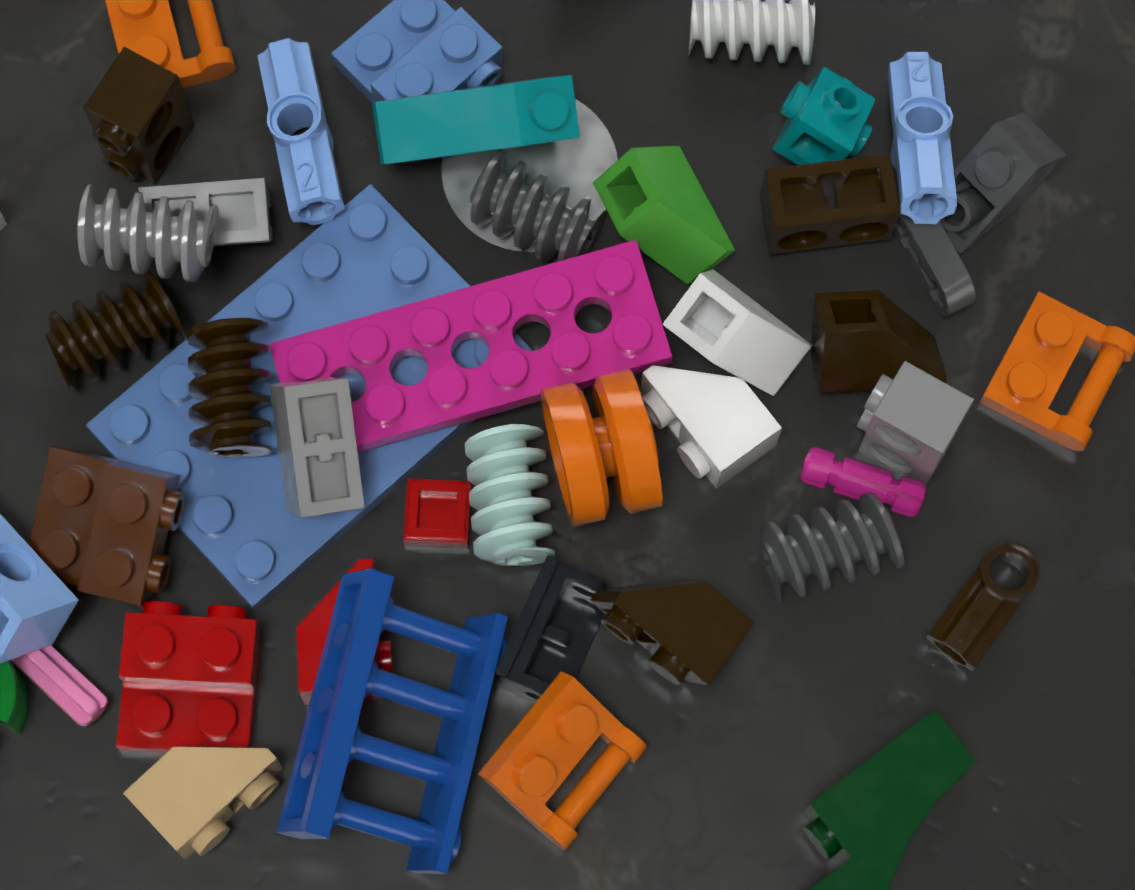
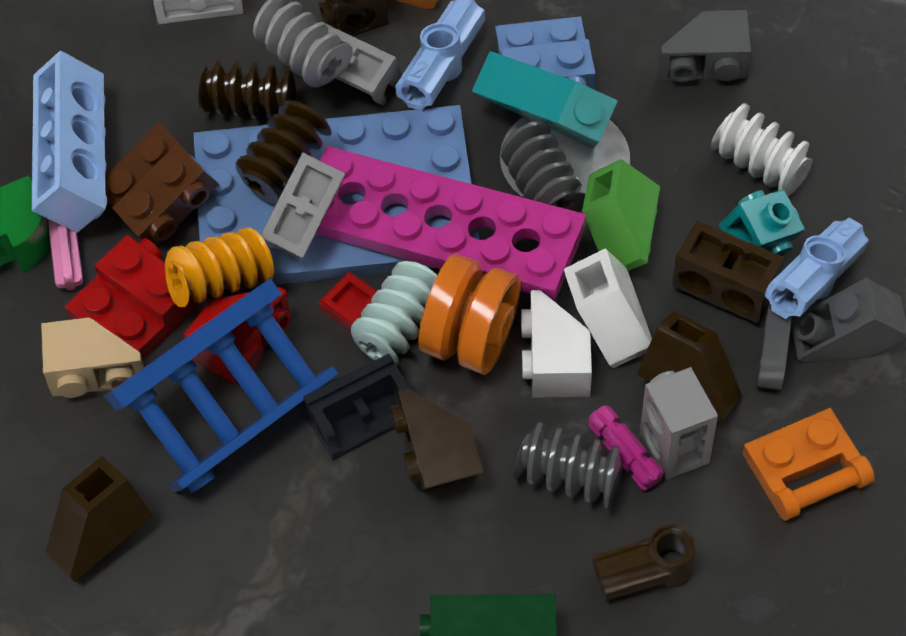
camera: 40 degrees right, 15 degrees down
(275, 586) = (217, 265): none -> light orange piece
(548, 748) = (301, 462): orange plate -> none

